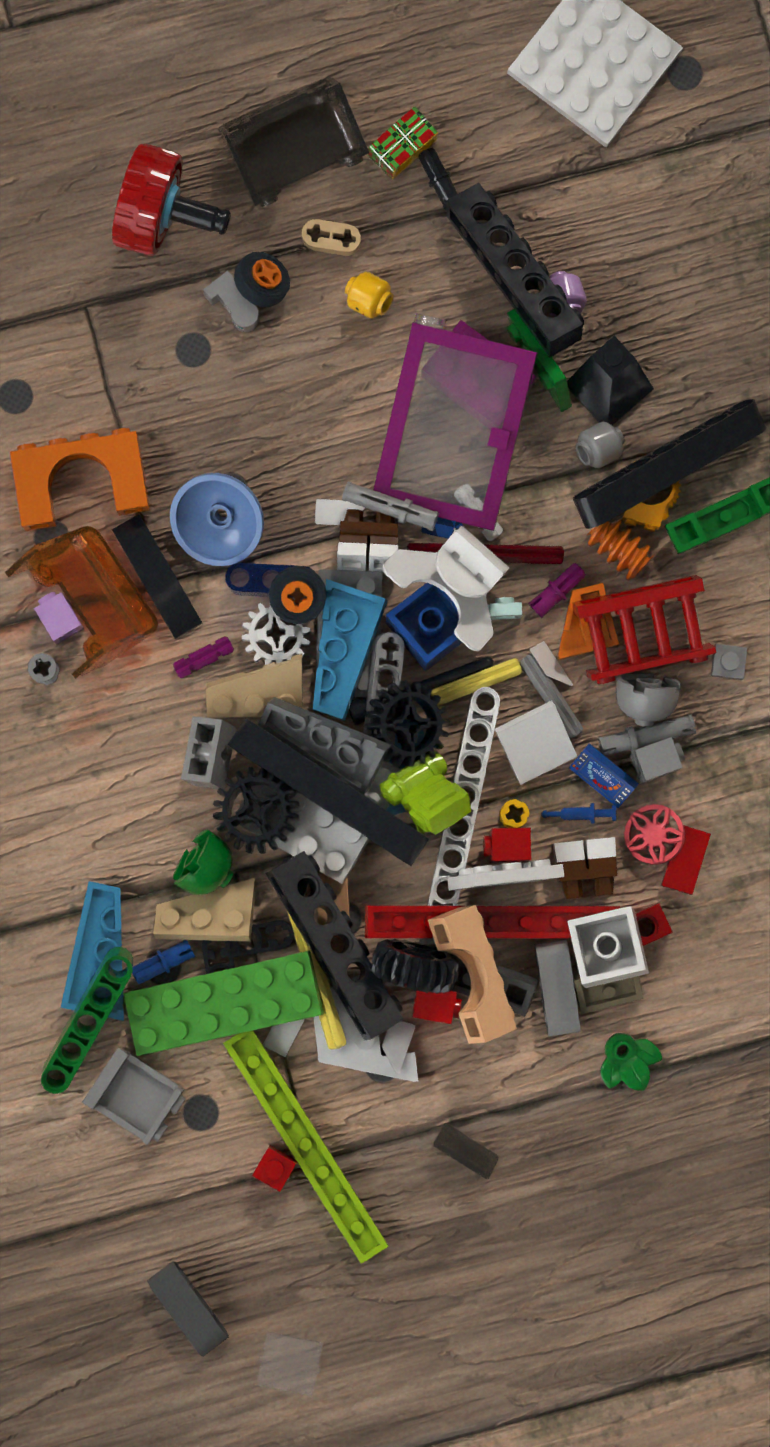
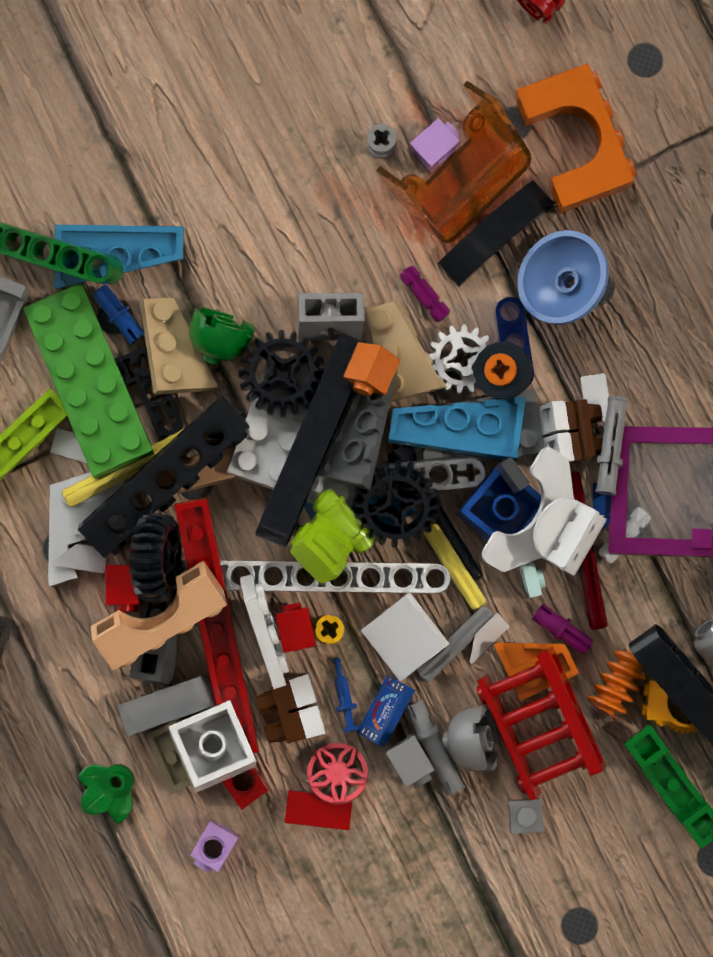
camera: 85 degrees right, 0 degrees up
(272, 721) = (371, 369): none -> orange brick
(402, 605) = (512, 475): none -> dark grey tile
(688, 963) = (220, 833): none -> lavender brick

